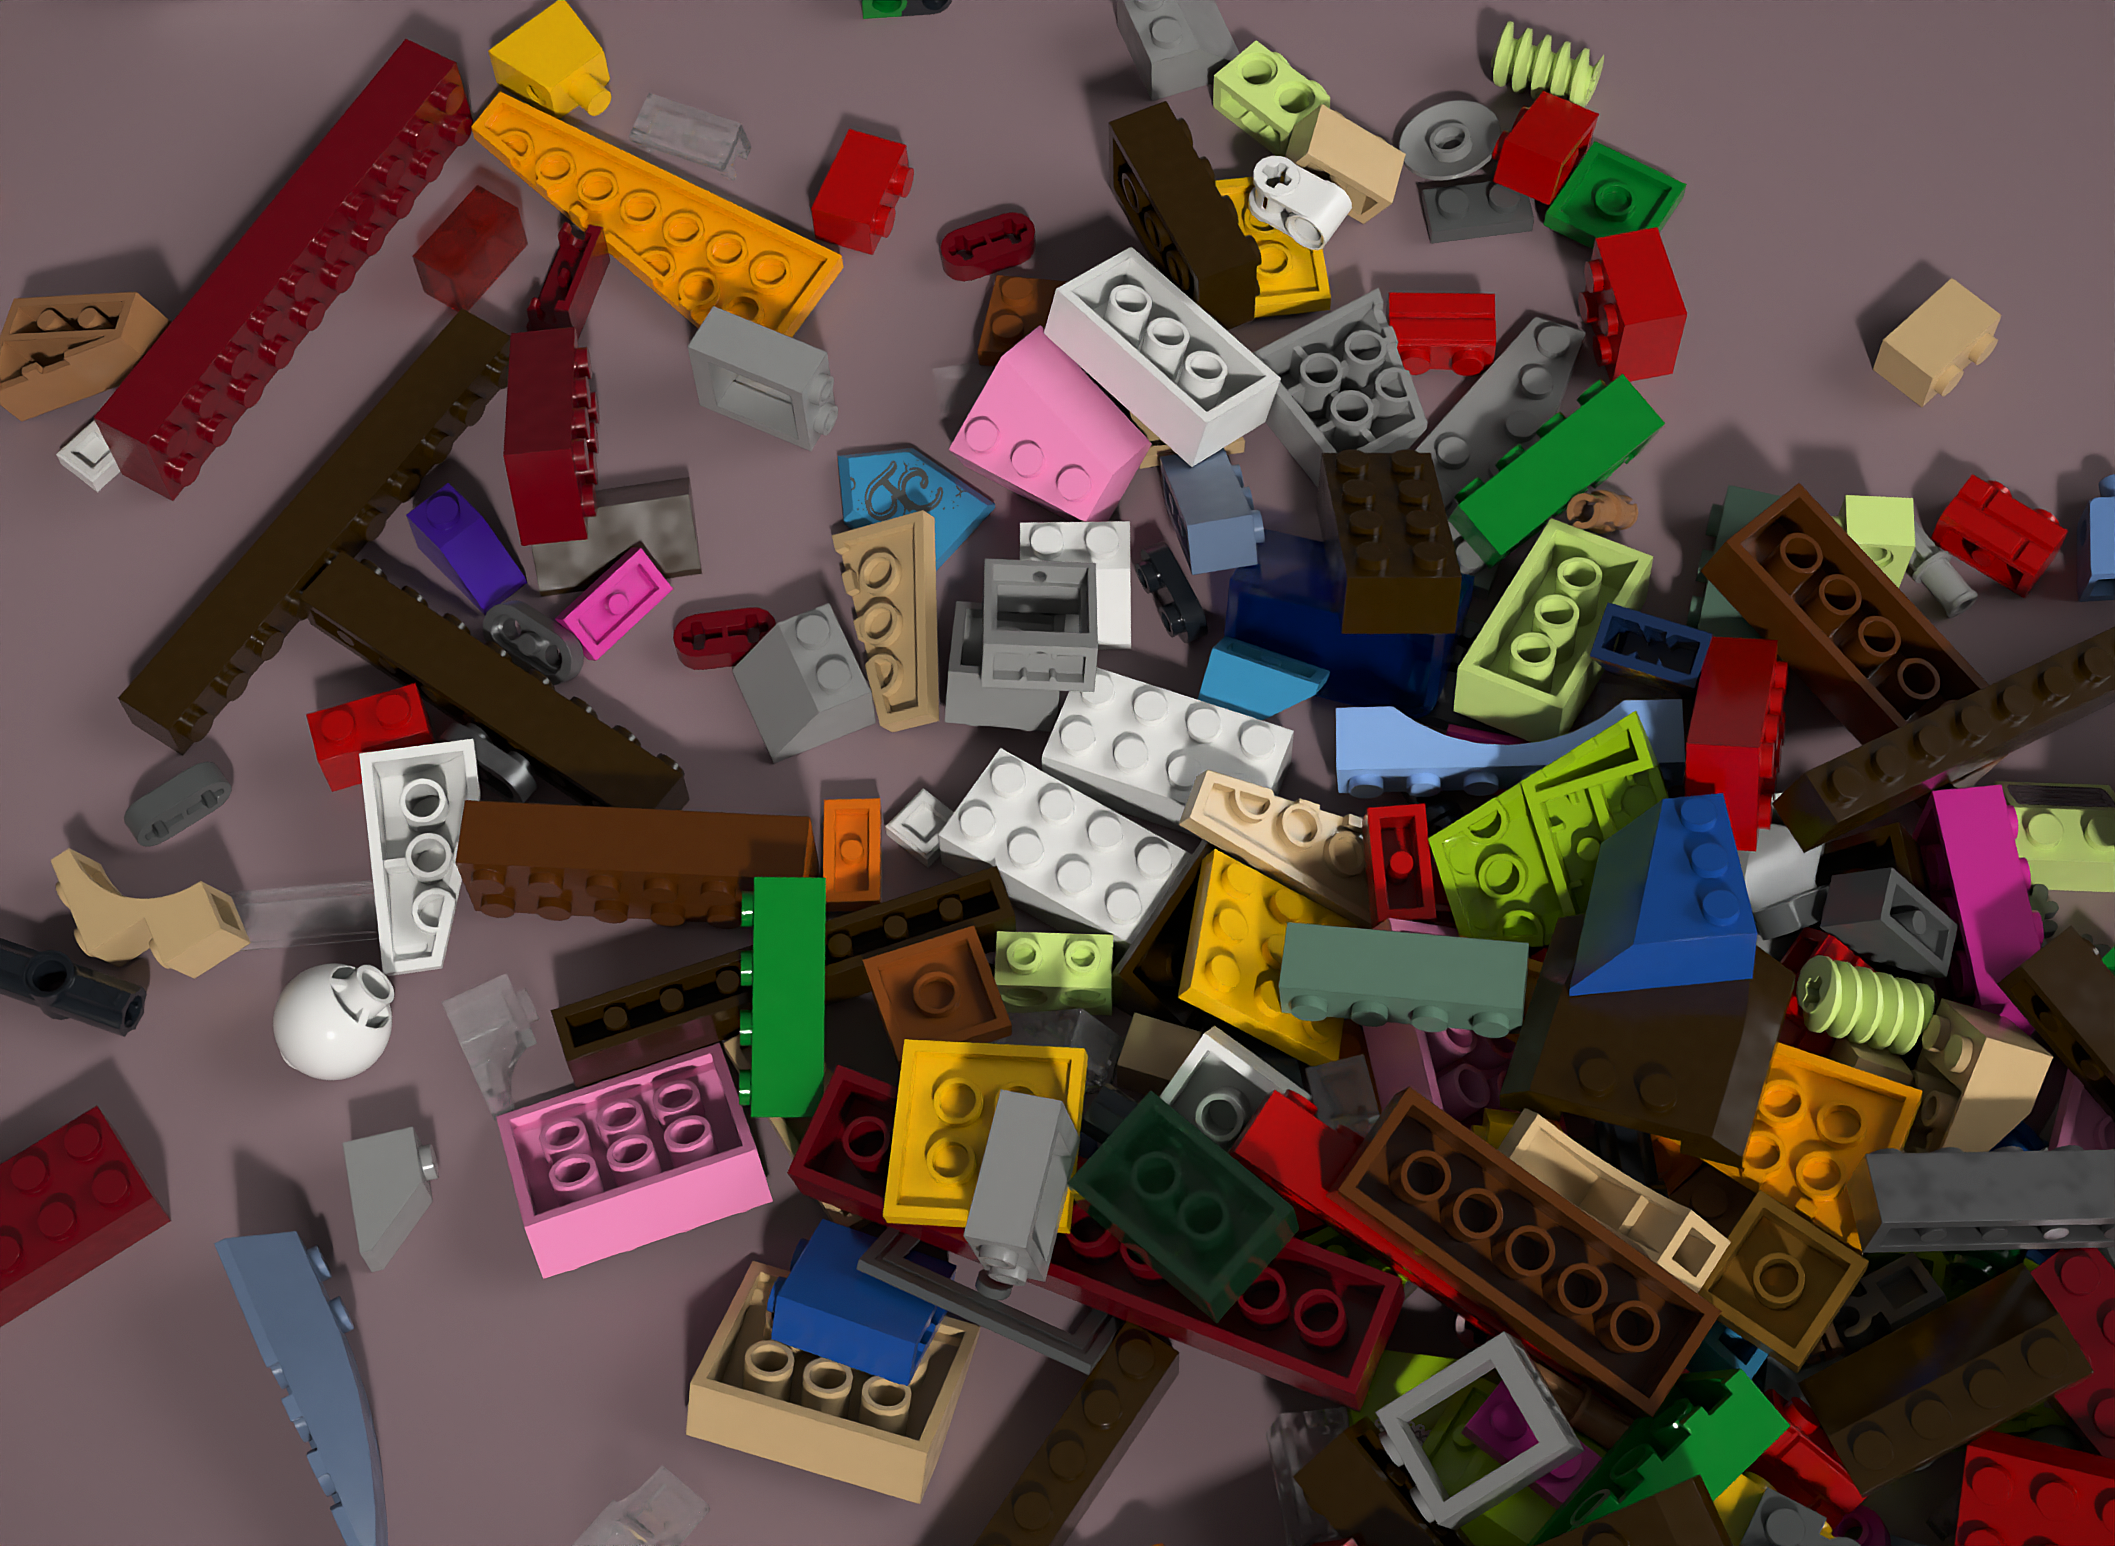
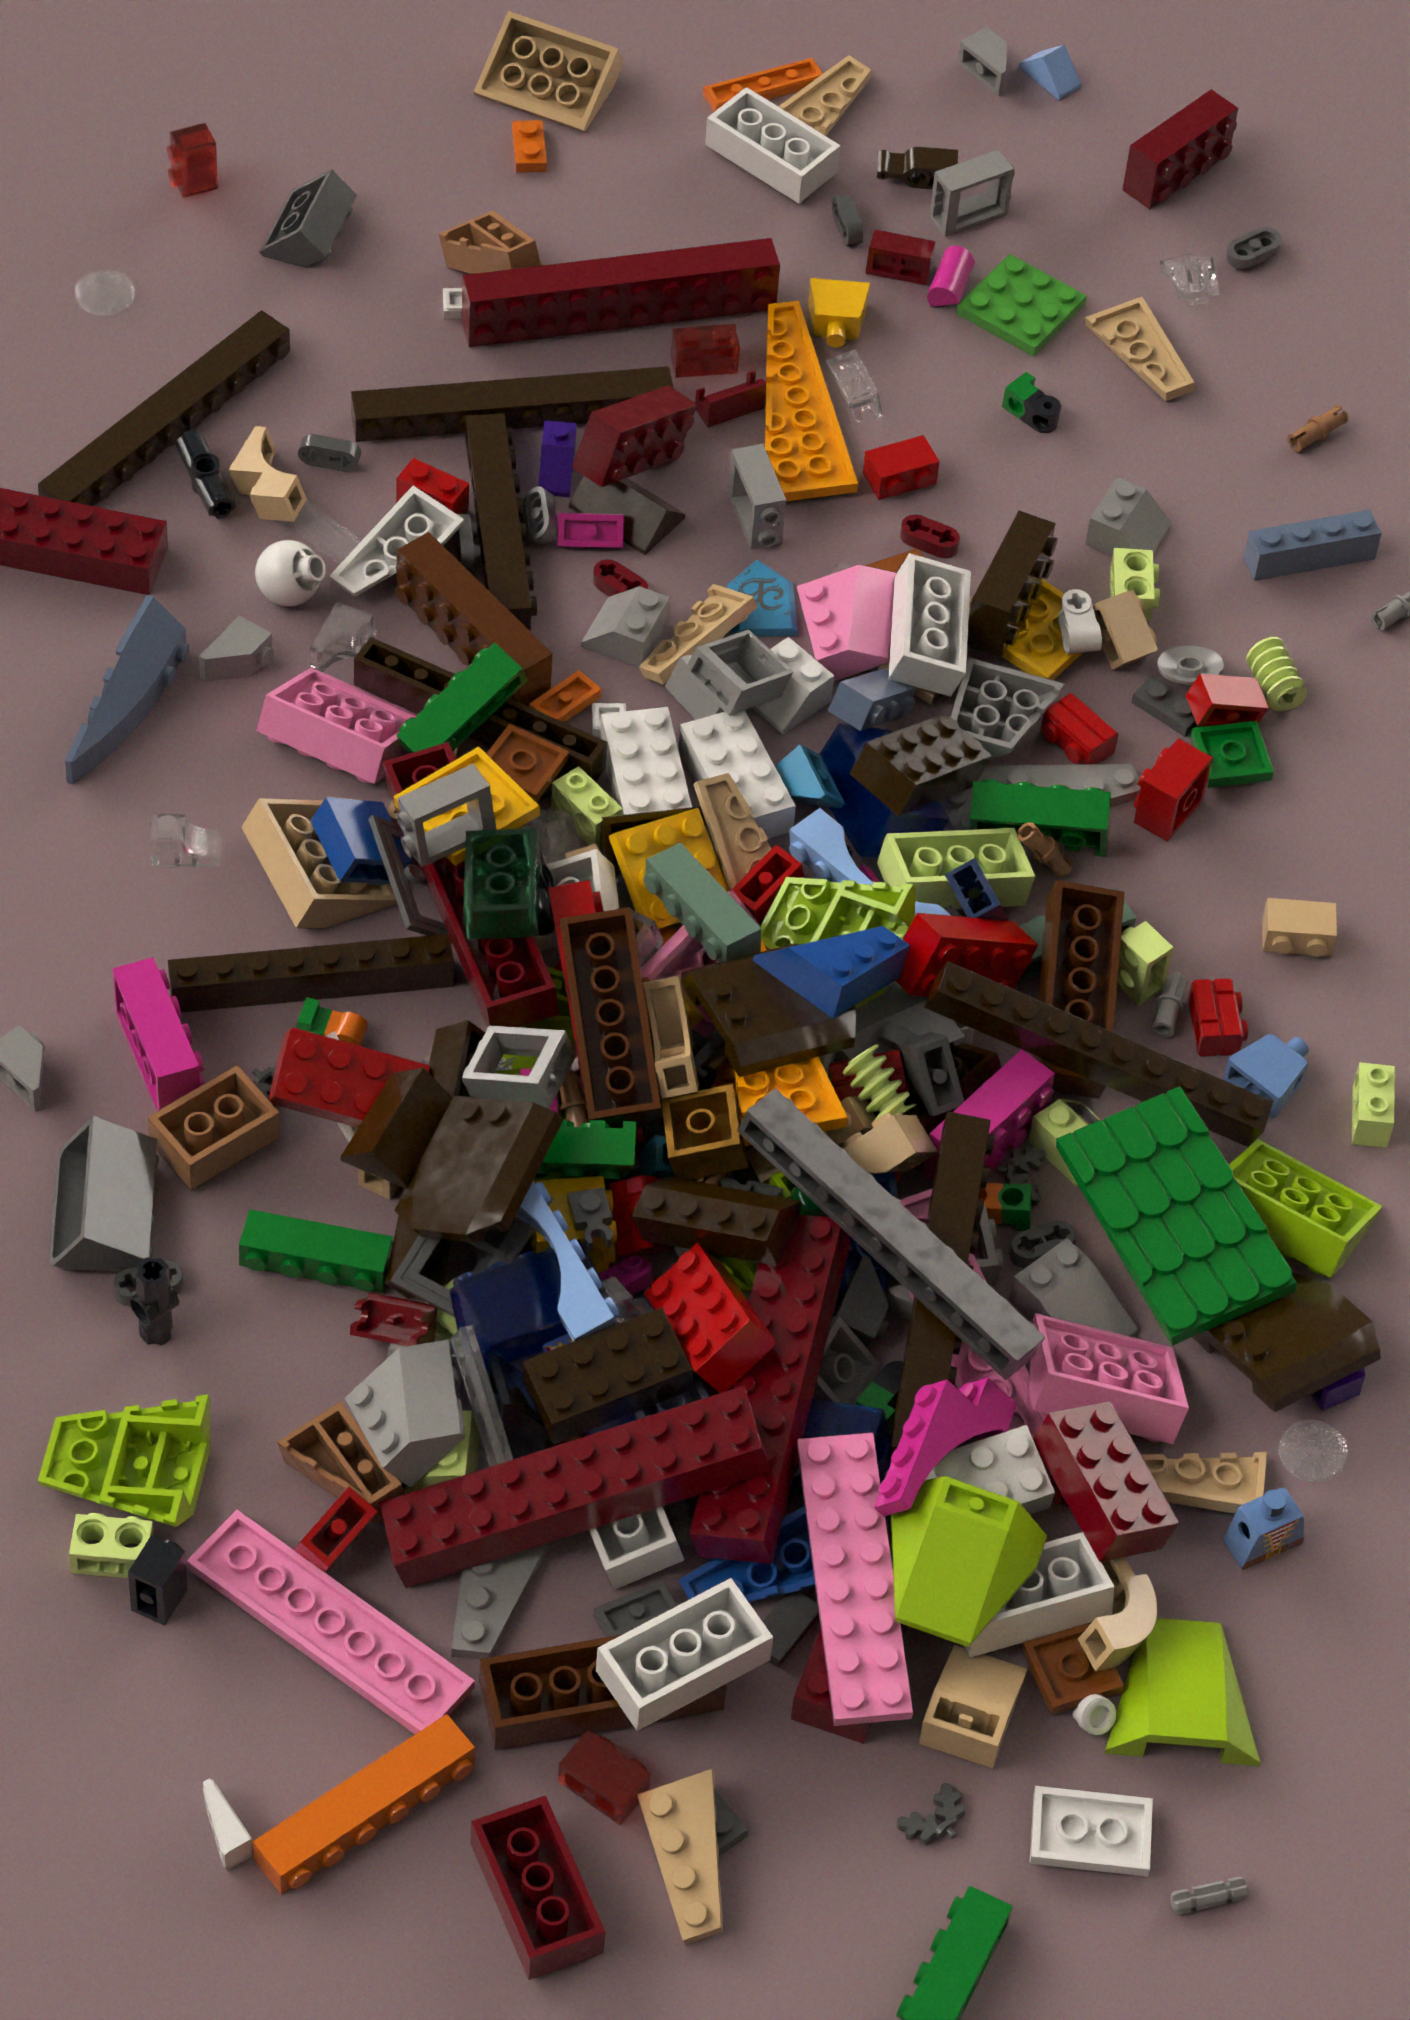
camera: 40 degrees right, 10 degrees down
(1180, 607) = (818, 733): black plate -> none

